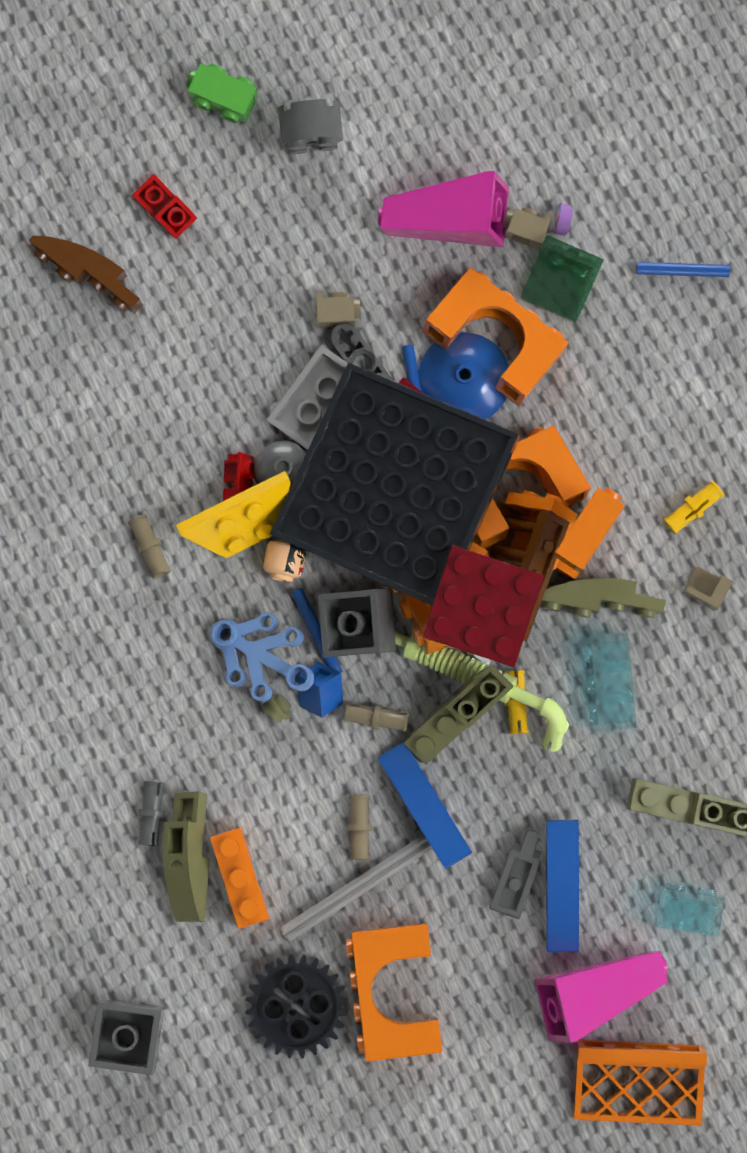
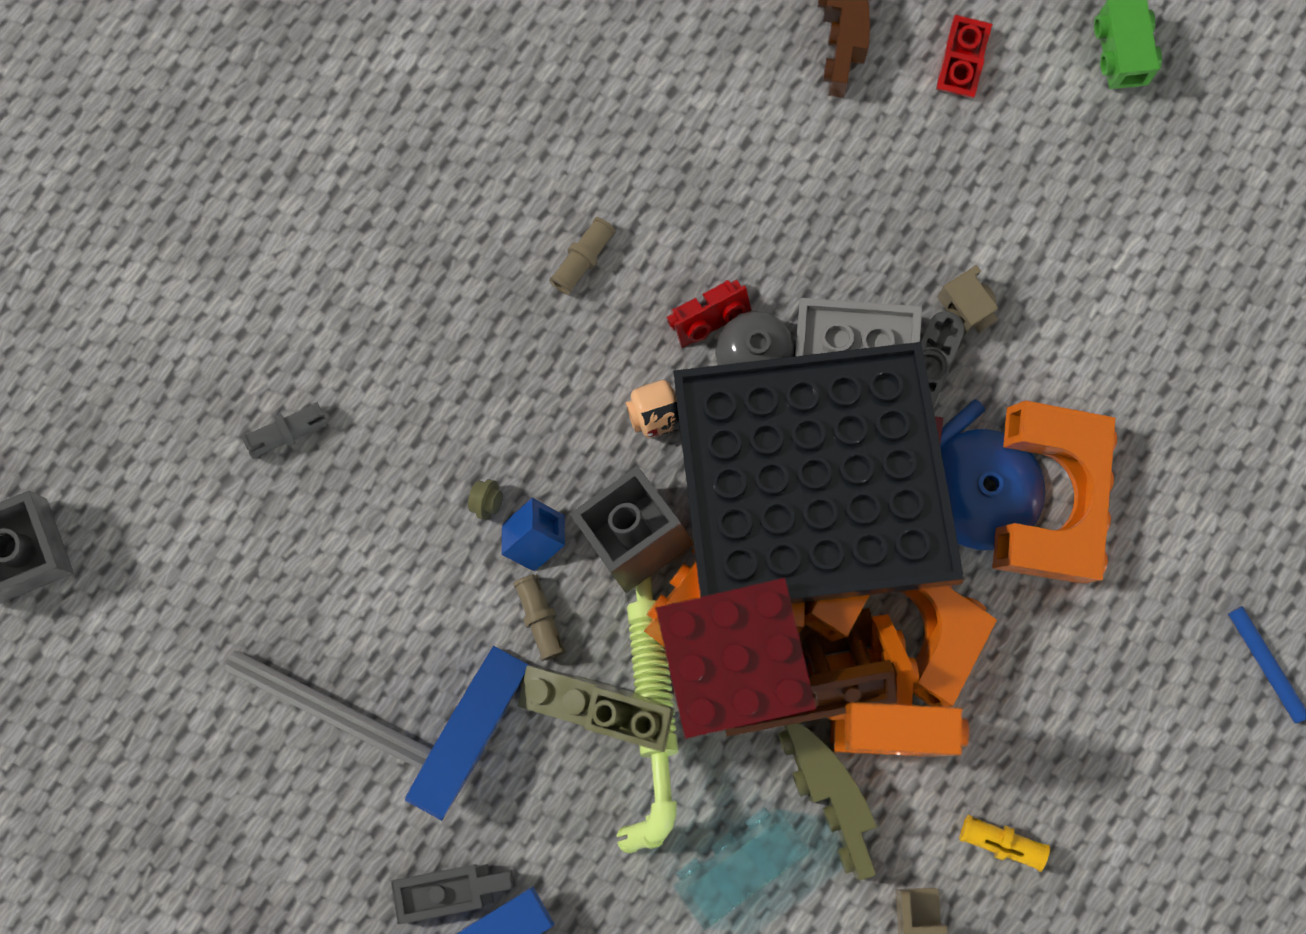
camera: 55 degrees right, 5 degrees down
(182, 855) = (242, 499): olive slope -> none
(240, 519) = (668, 329): yellow wing -> none
(240, 878) = (250, 582): orange arch -> none
(257, 653) = (531, 441): medium blue plant -> none
(278, 1029) = (116, 716): black gear -> none
(310, 125) = (1156, 152): dark grey brick -> none
(313, 626) = (606, 478): blue bar -> none
(359, 827) = (400, 673): dark tan pin -> none
(382, 1036) = (172, 843): orange arch -> none
(453, 211) = (1164, 362): dark pink slope -> none
(517, 710) = (641, 774): yellow pin -> none
(526, 227) = (1200, 456): dark tan brick -> none
(561, 278) = (1169, 530): clear green bracket -> none
(563, 219) = (1235, 492): medium lavender tile -> none

